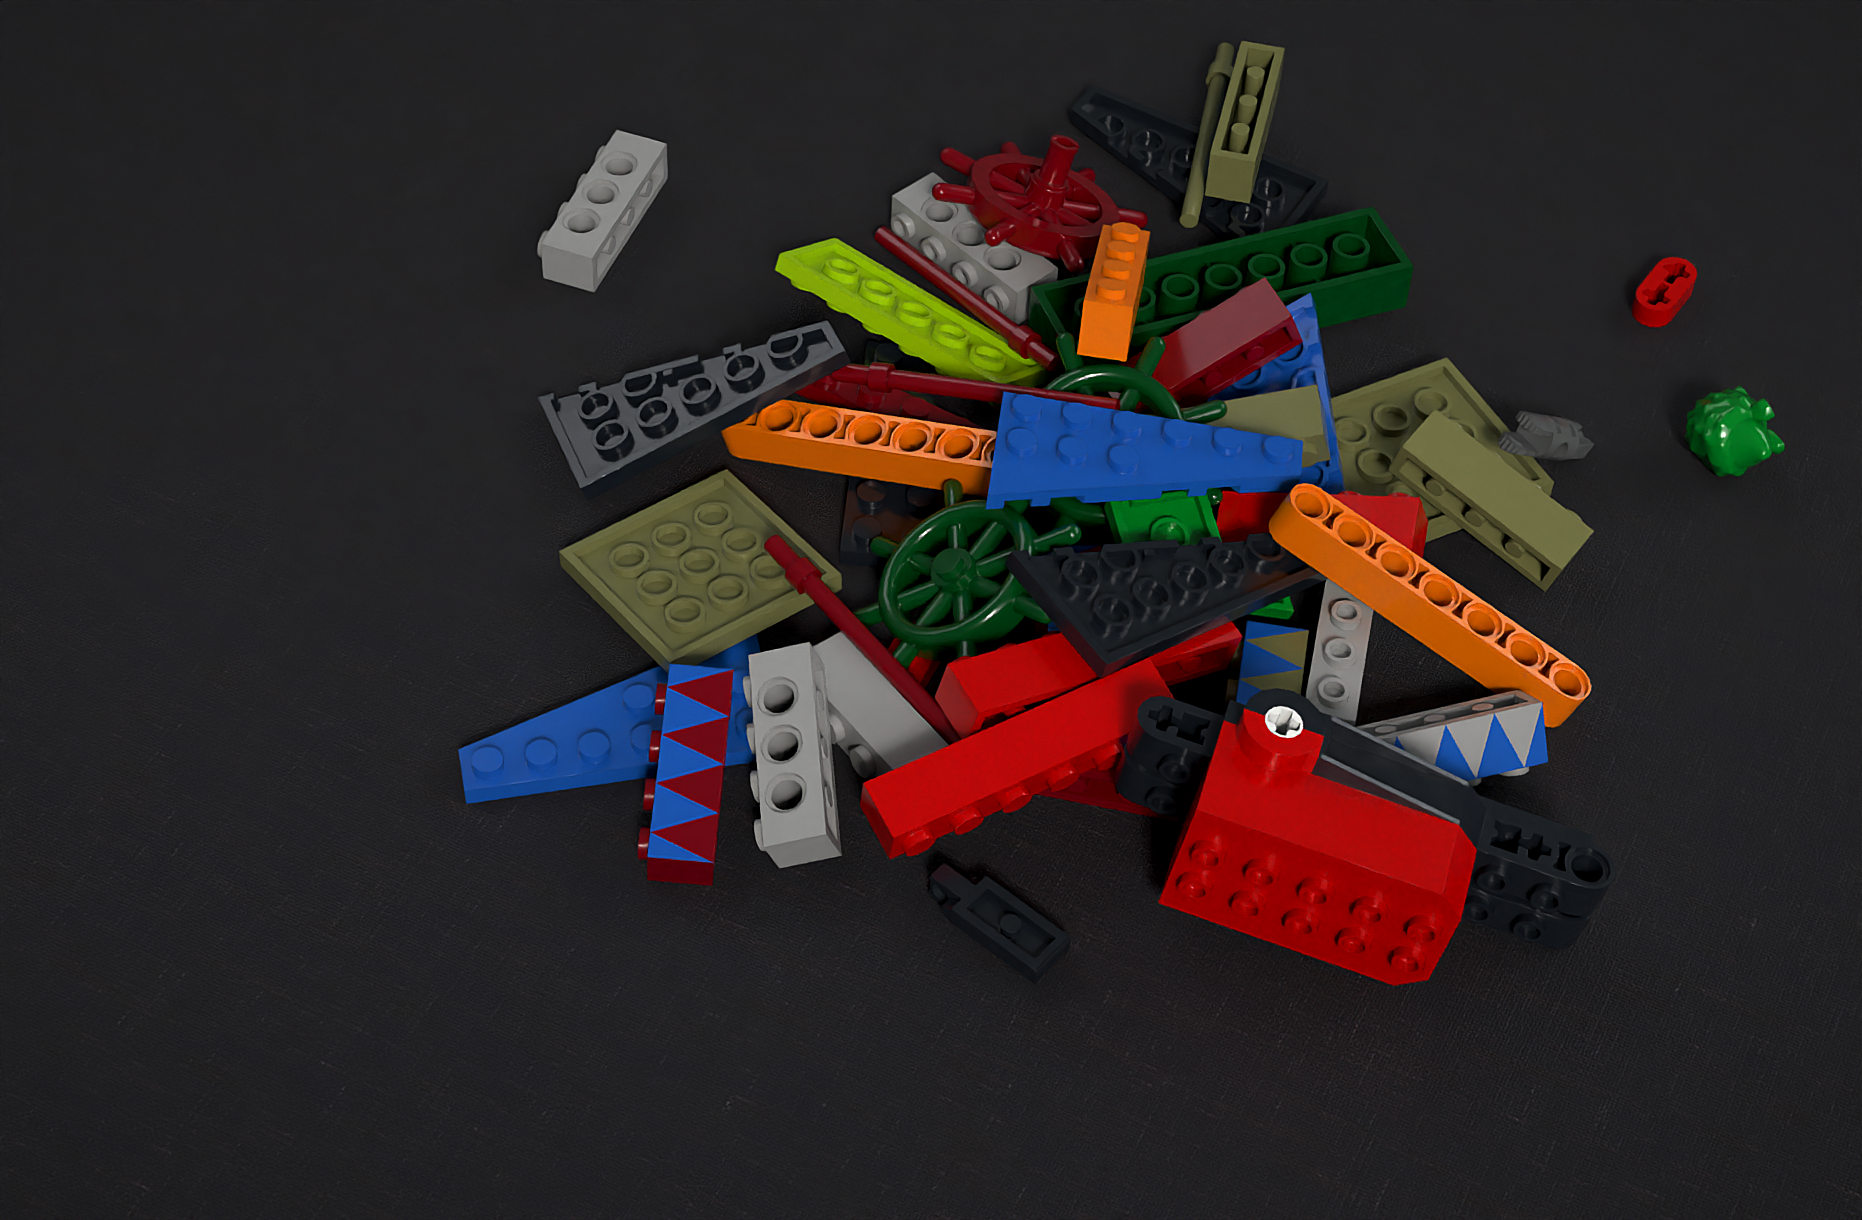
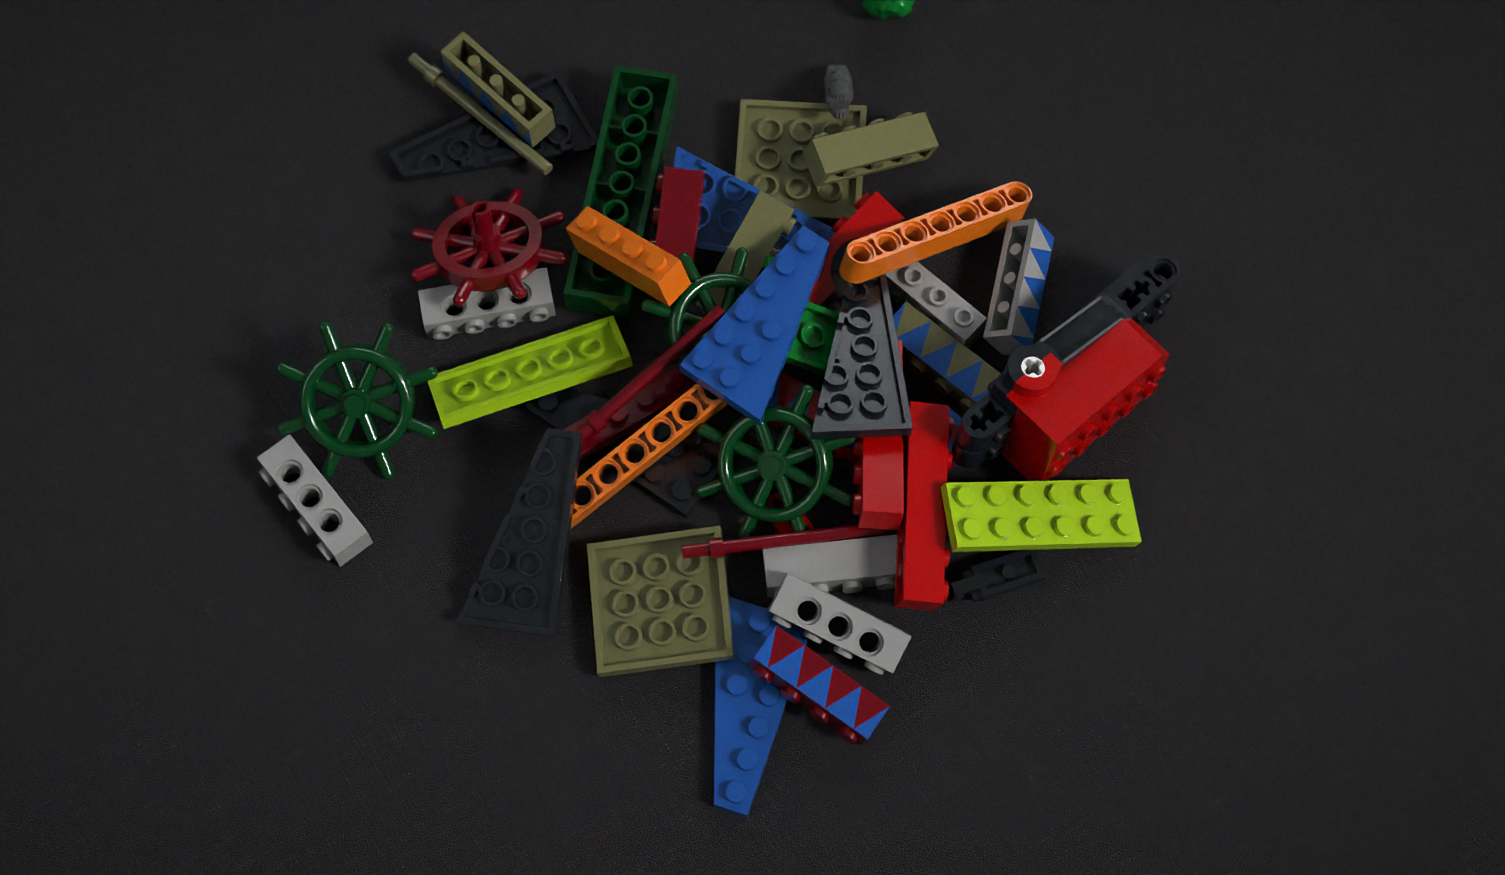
camera: 55 degrees left, 20 degrees up
(746, 169) = (357, 400): none -> dark green piece
(1020, 338) = (591, 320): dark red bar -> none
(1115, 910) = (1040, 515): none -> lime plate

